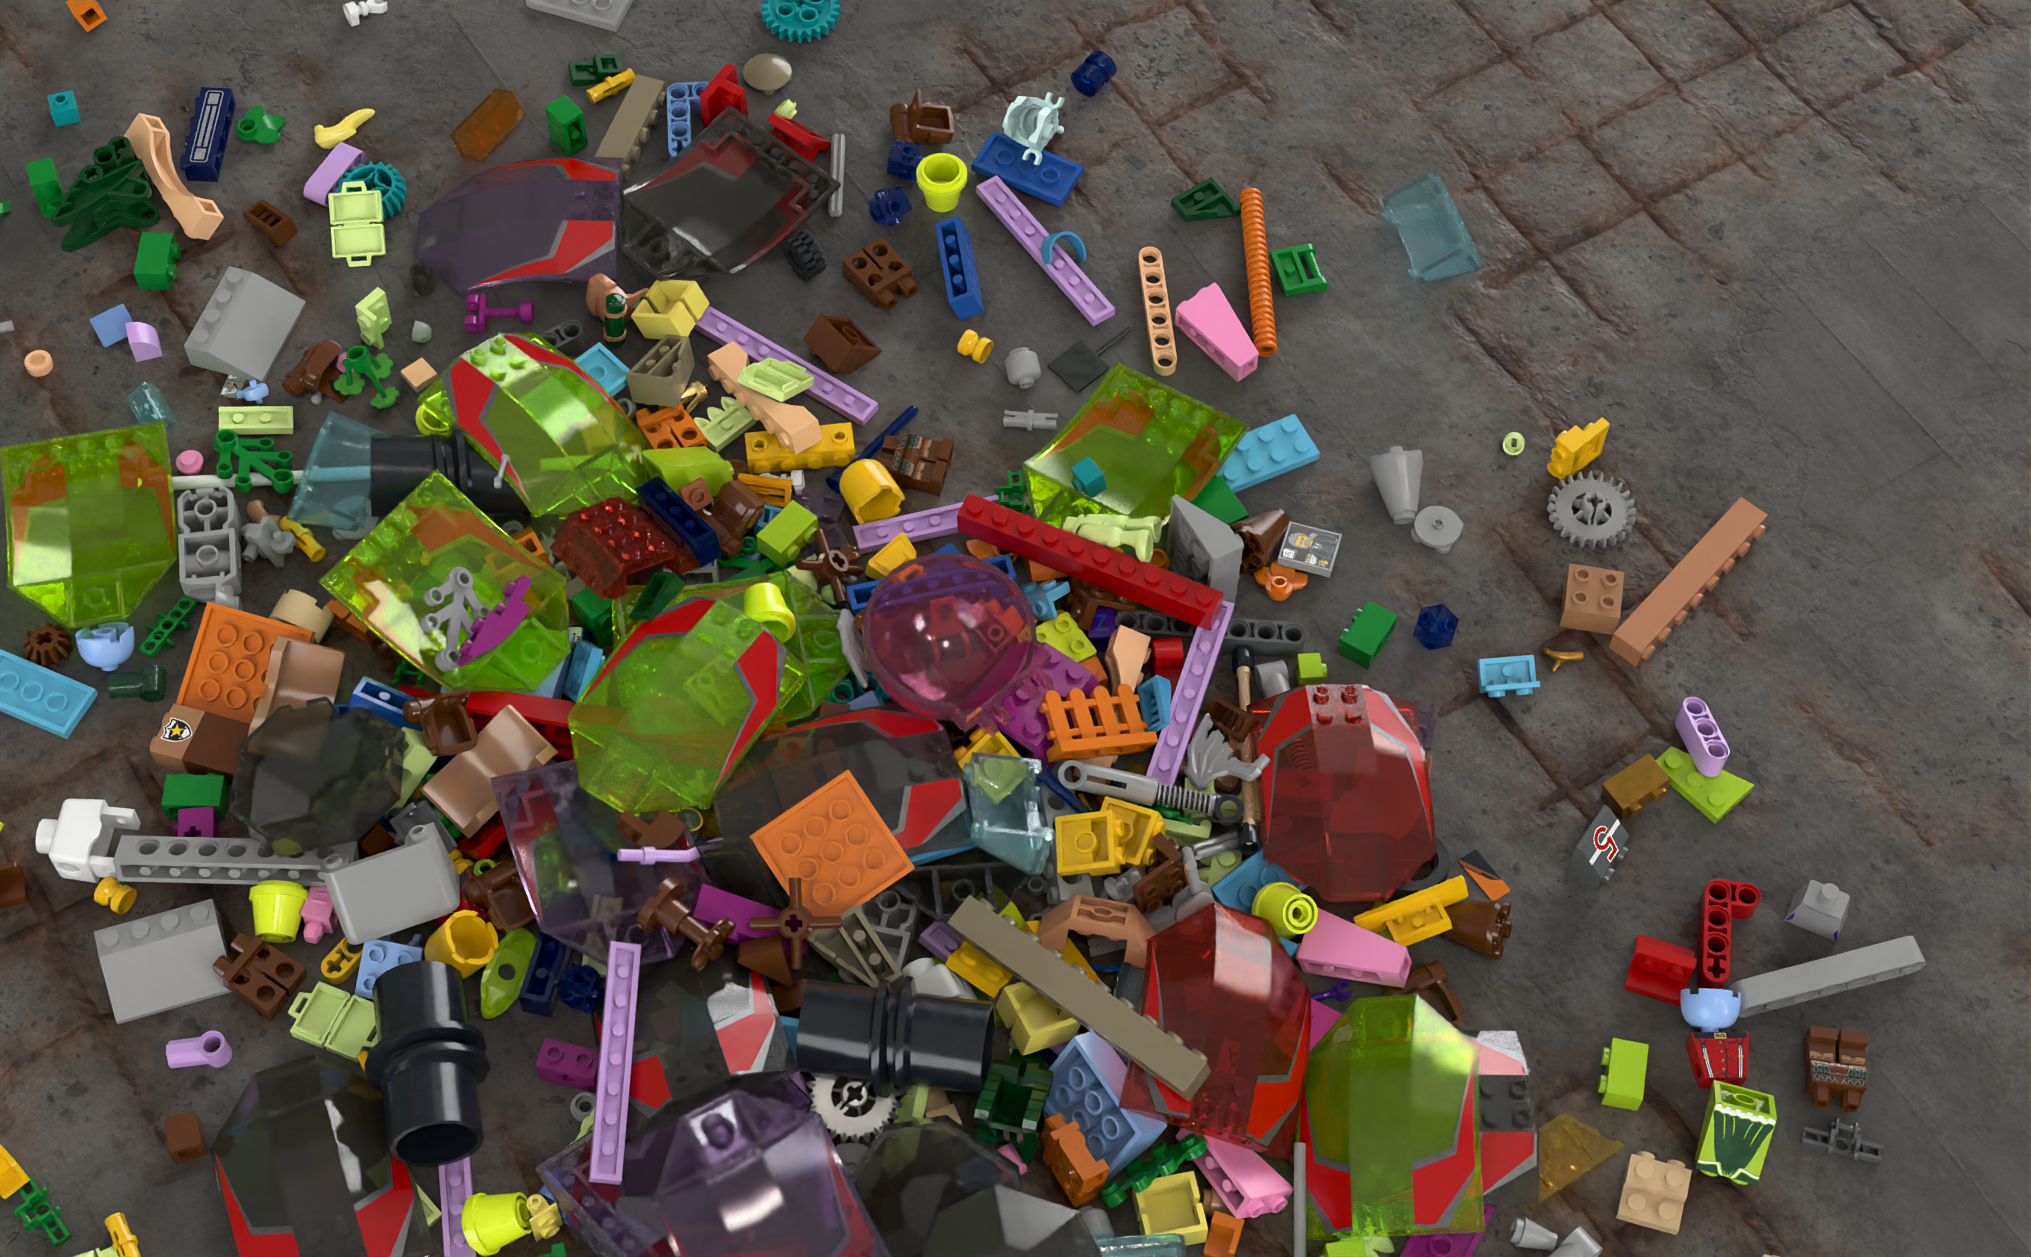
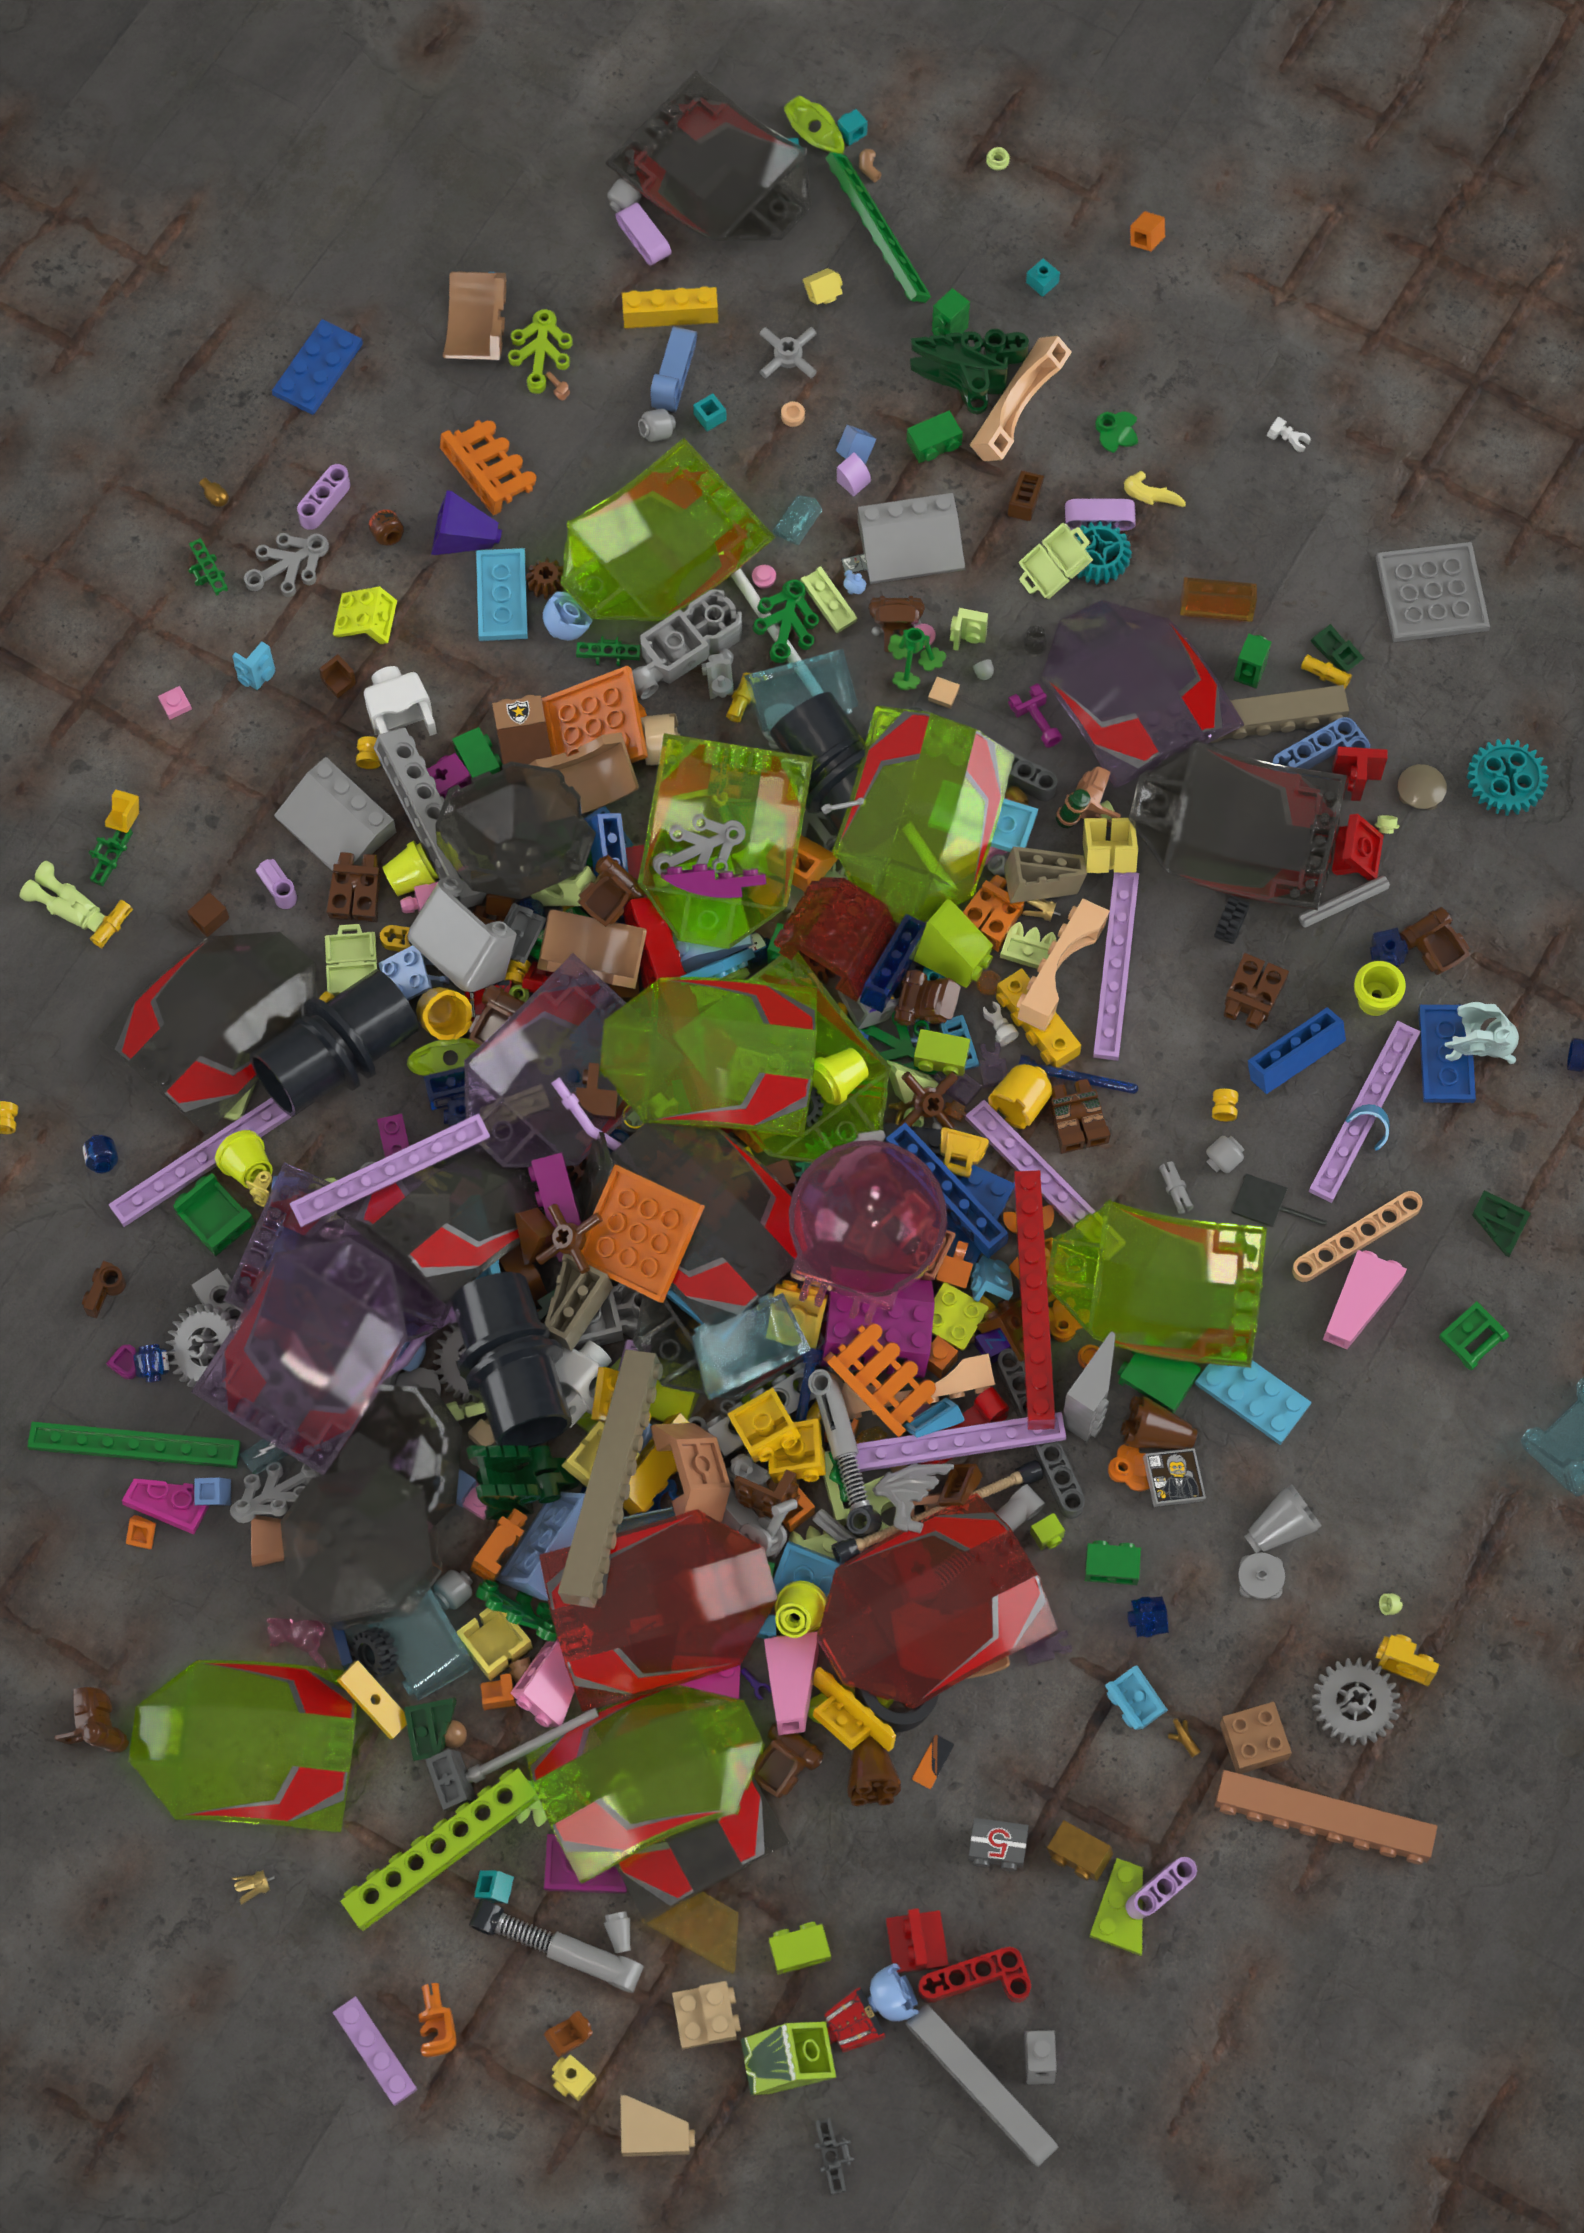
camera: 65 degrees right, 10 degrees up
(147, 684) = (552, 667): clear green piece -> none
(208, 134) = (1081, 398): clear blue brick -> none
(256, 511) = (743, 655): medium nougat arm -> none
(656, 595) = (800, 983): dark green slope -> none
(677, 917) = (521, 1149): reddish brown piece -> none
(696, 494) = (923, 962): dark orange bracket -> none
(769, 485) = (980, 1013): light orange tile -> none
(776, 378) = (1084, 964): yellowish green piece -> none
(840, 344) = (1163, 997): reddish brown slope -> none
(889, 205) = (1329, 960): clear blue brick -> none
(1013, 488) = (1071, 1214): green piece -> none
(1088, 478) = (1127, 1260): teal plate -> none
(1118, 530) = (1064, 1296): yellowish green piece -> none
(1258, 272) = (1449, 1301): orange piece -> none
(1835, 1066) = (886, 2120): reddish brown hips -> none

